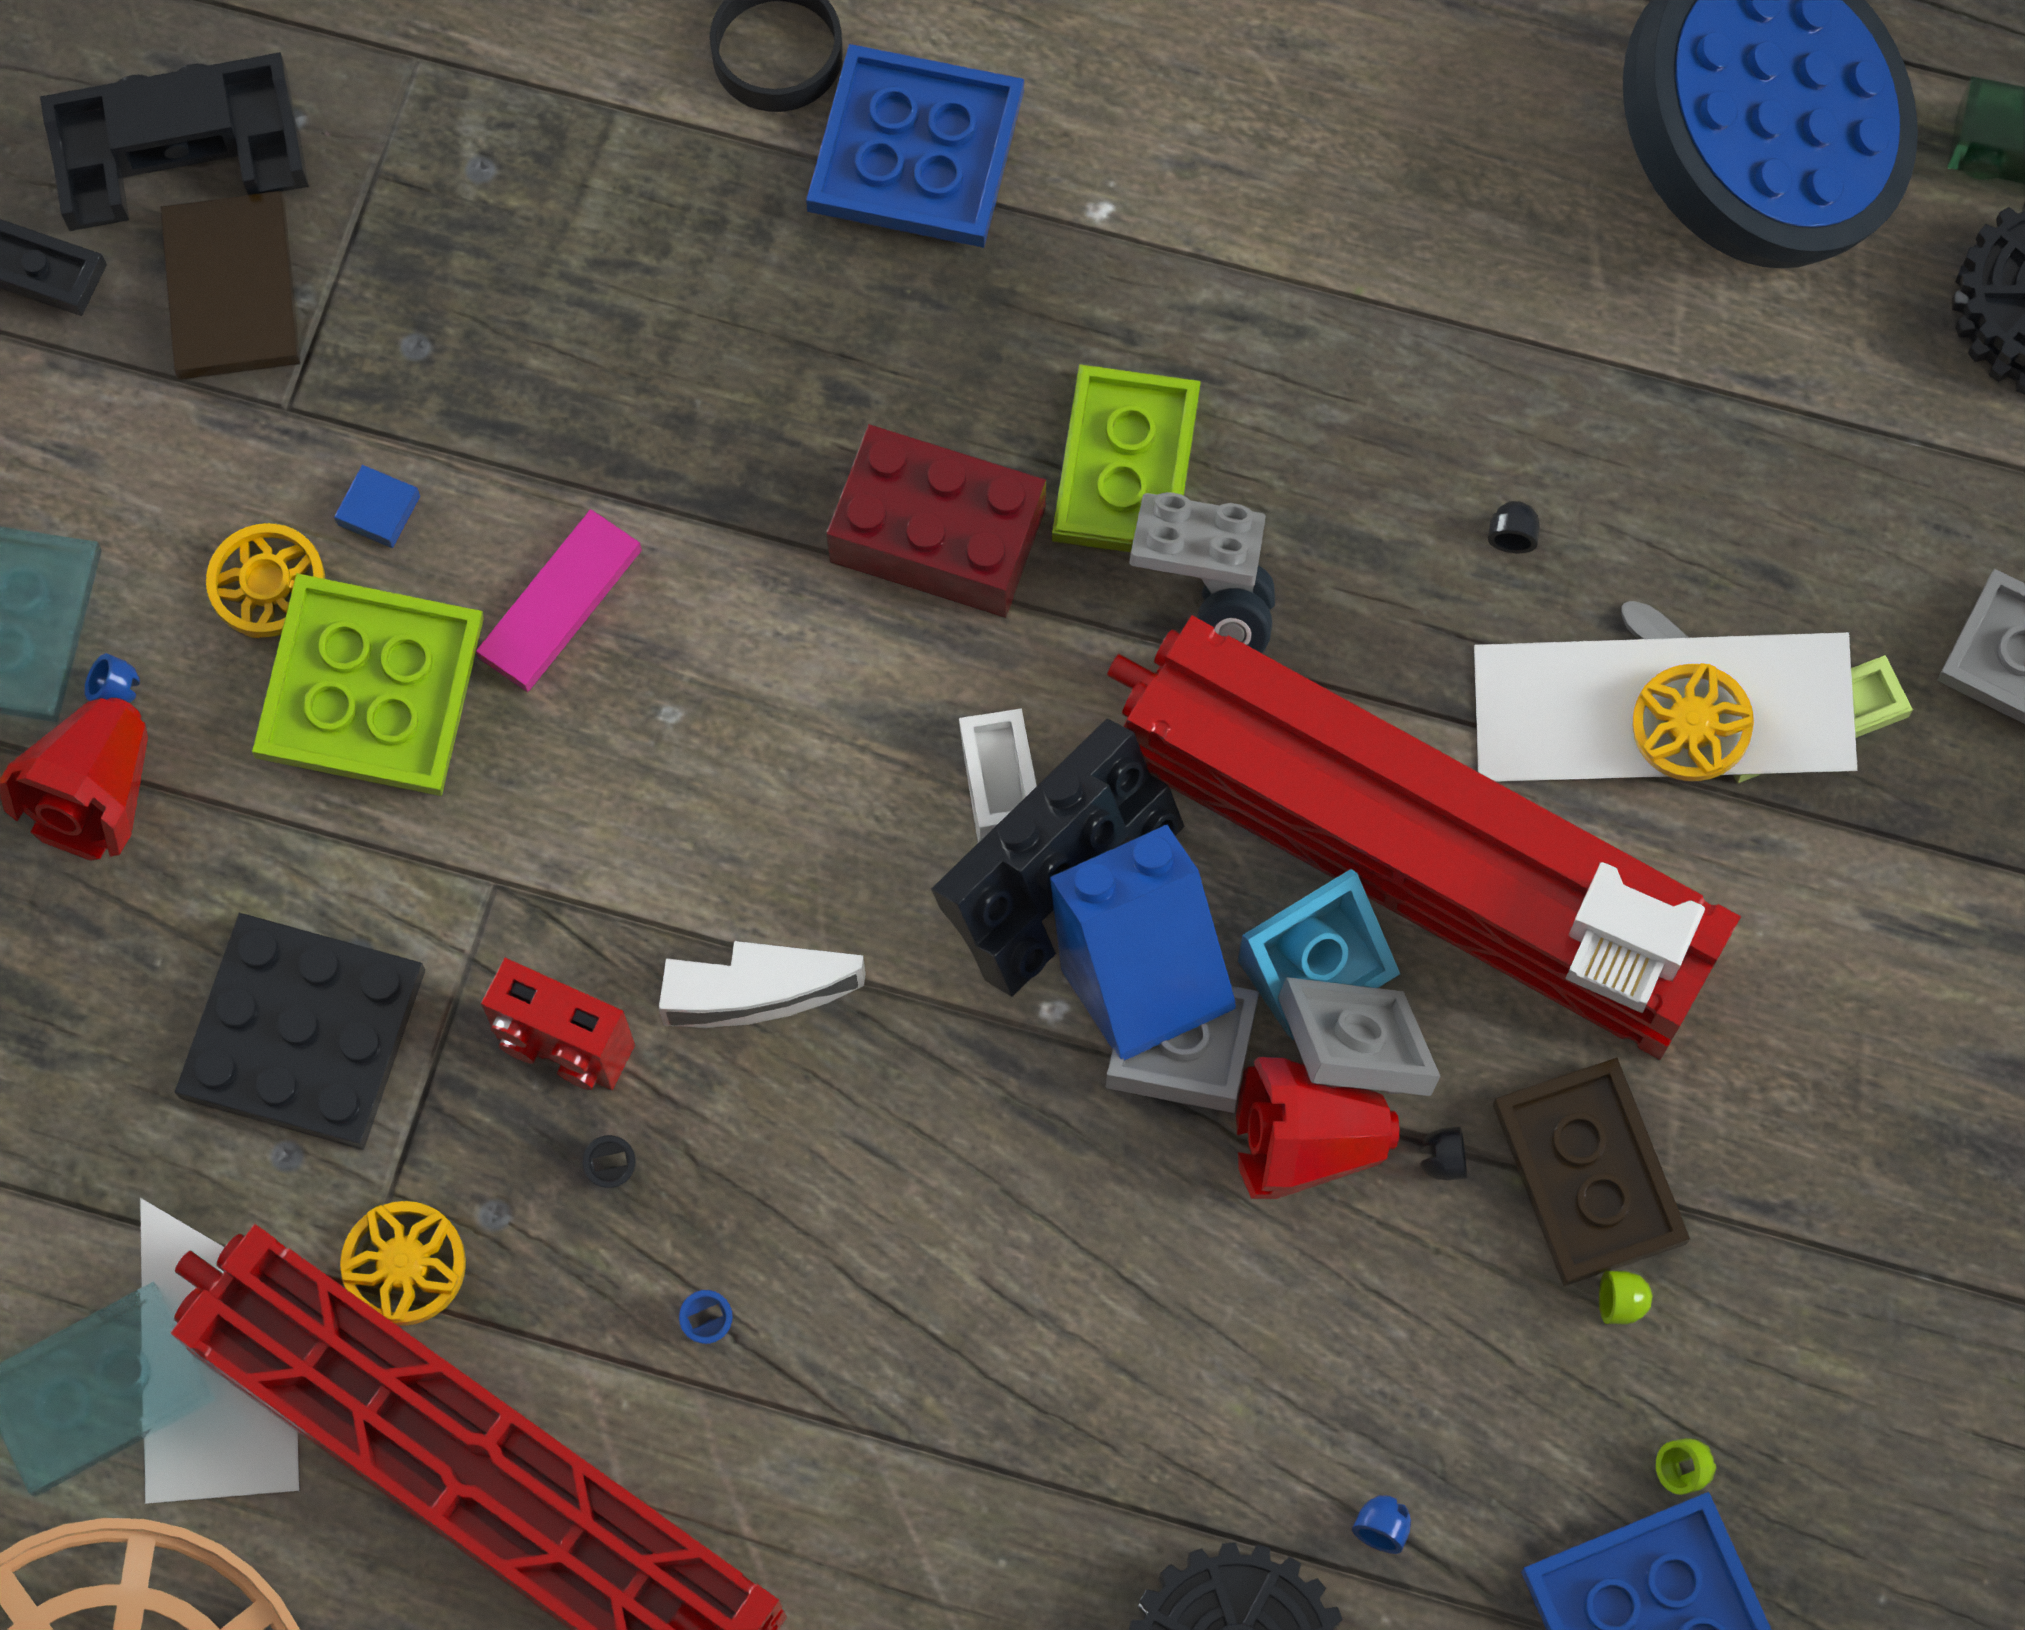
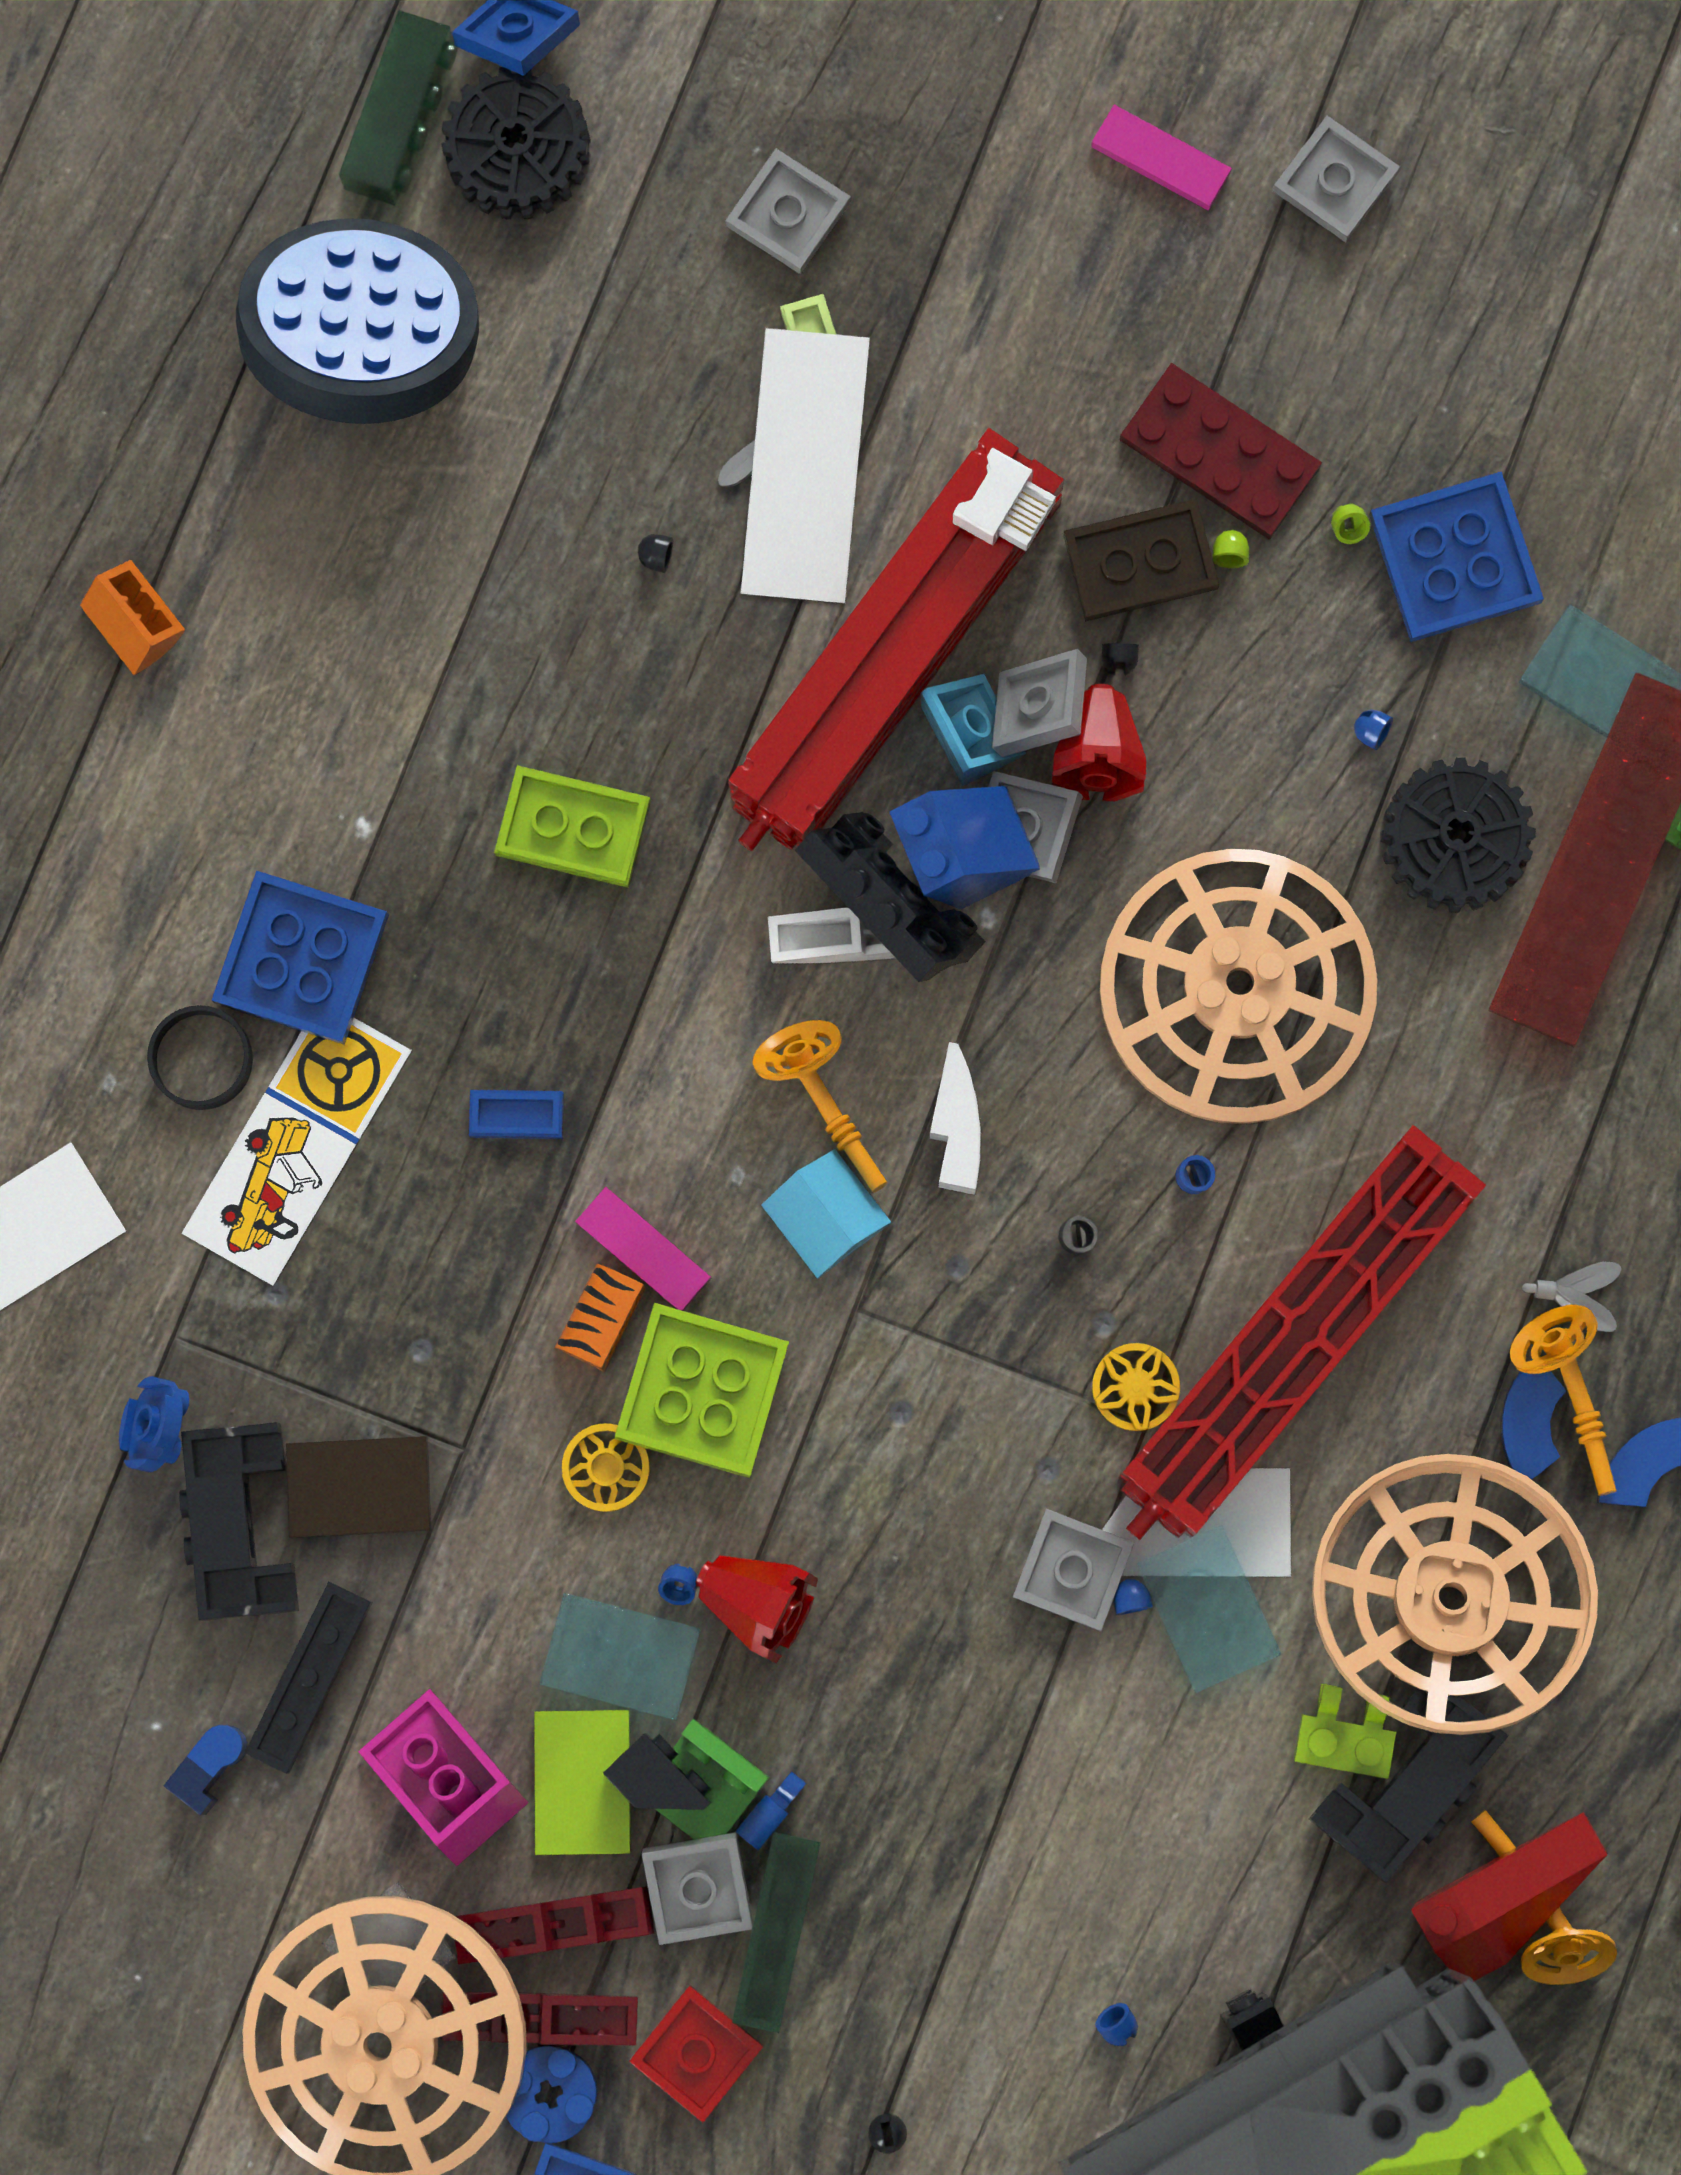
camera: 80 degrees left, 10 degrees up
(105, 1277) = (1131, 1597): none -> blue hinge
(140, 1193) = (1073, 1570): none -> light grey plate
(292, 24) = (153, 1424): none -> blue plate
(300, 1031) = (958, 1453): black plate -> none
(377, 506) = (554, 1381): blue tile -> none
(461, 555) = (600, 1317): none -> orange brick
(558, 1023) = (983, 1260): red piece -> none
(625, 829) = (825, 1212): none -> medium azure slope
(670, 172) = (295, 1148): none -> sticker
(731, 428) = (516, 1114): none -> blue tile
(819, 776) = (804, 1066): none -> light orange dish
(936, 520) = (613, 965): dark red brick -> none
(993, 1402) = (1231, 1014): none -> light nougat dish
(1218, 547) = (660, 768): light grey plate -> none
(1693, 722) = (822, 445): yellow wheel -> none
(1768, 1274) = (1220, 451): none -> dark red plate

